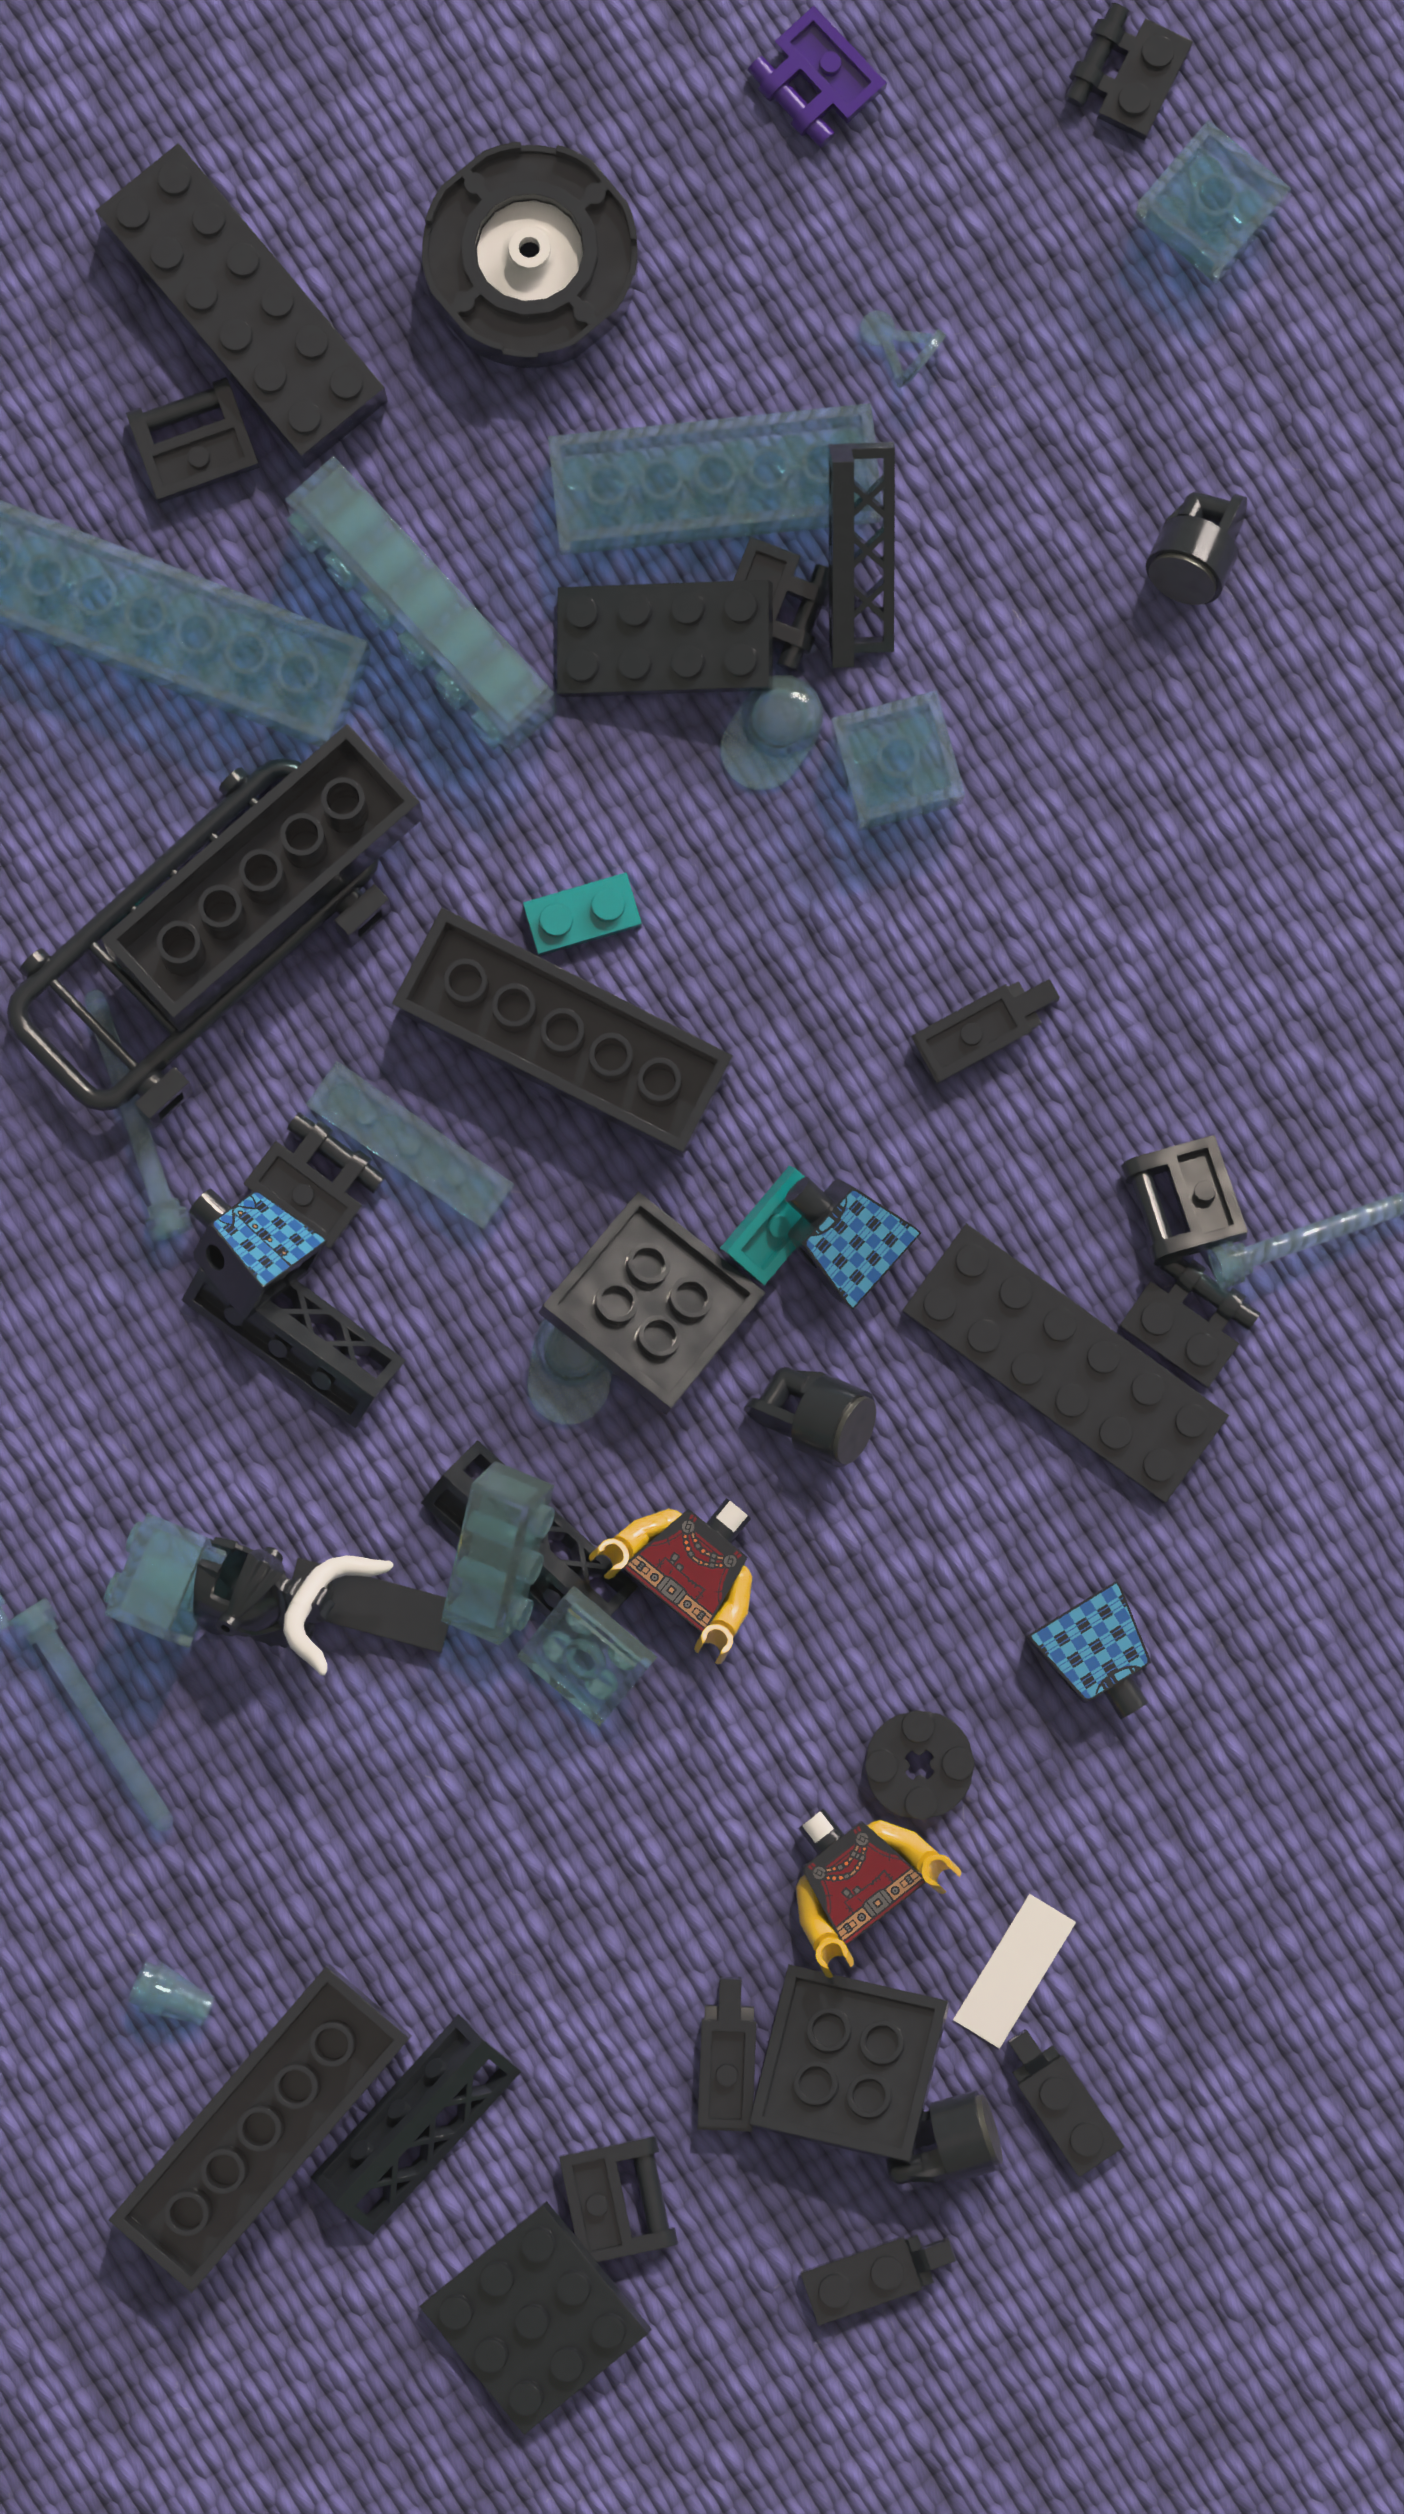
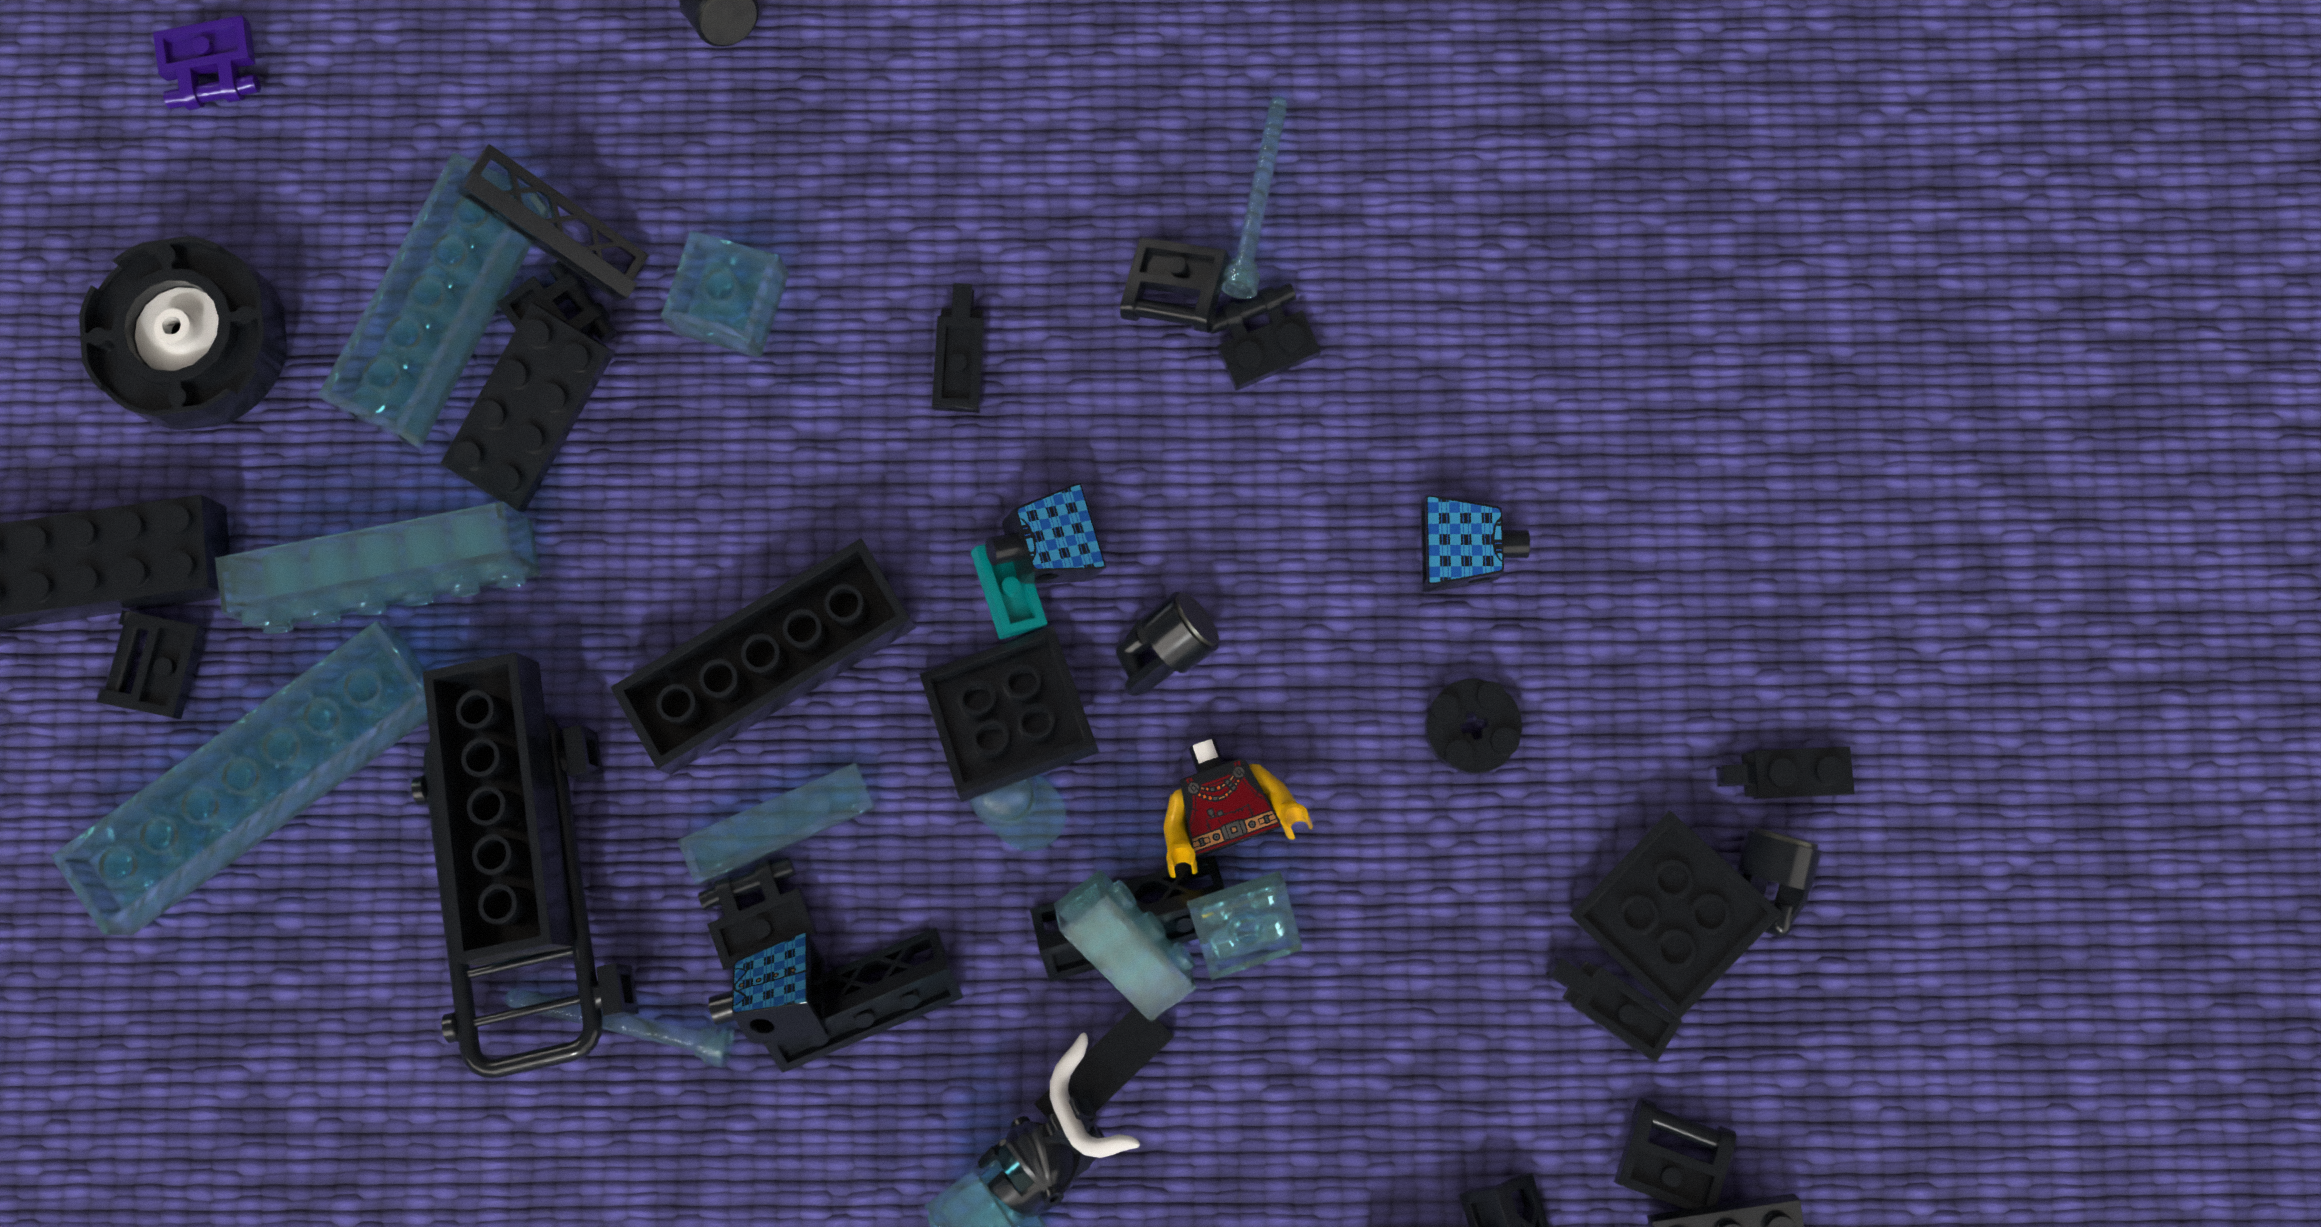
camera: 55 degrees left, 5 degrees down
(582, 914) = (690, 591): teal plate -> none
(772, 733) = (649, 375): clear light blue cap -> none
(859, 1880) = (1537, 822): torso -> none
(873, 2276) = (1842, 994): black hinge -> none
(879, 329) = (416, 130): clear light blue piece -> none
(1014, 1971) = (1667, 750): white sticker -> none
(1065, 1363) = (1239, 443): black plate -> none

